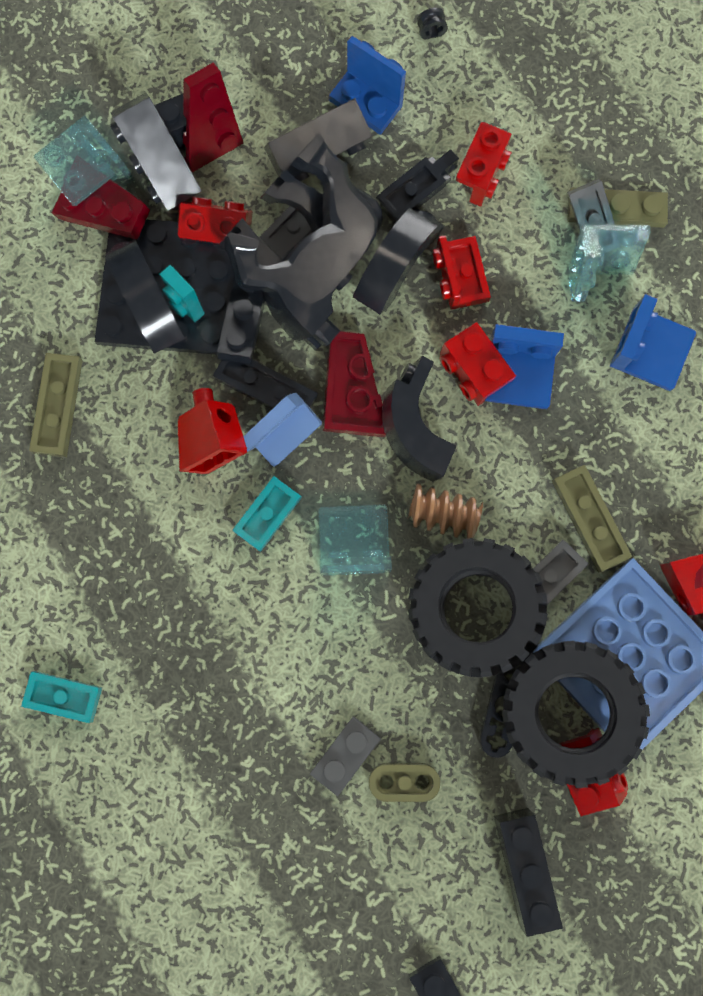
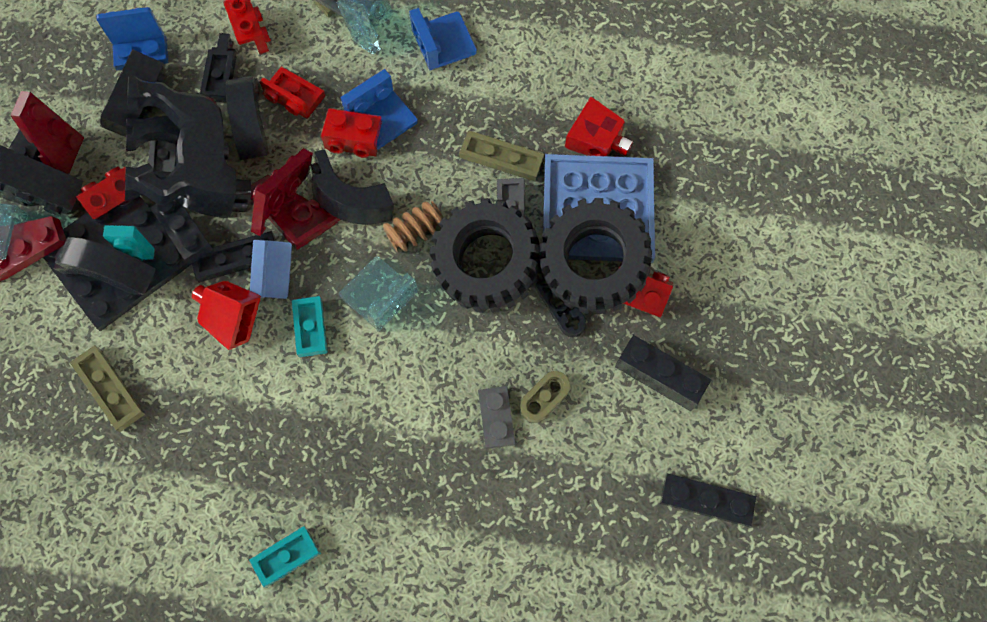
camera: 45 degrees left, 10 degrees down
(340, 365) = (282, 182): none -> dark red wing

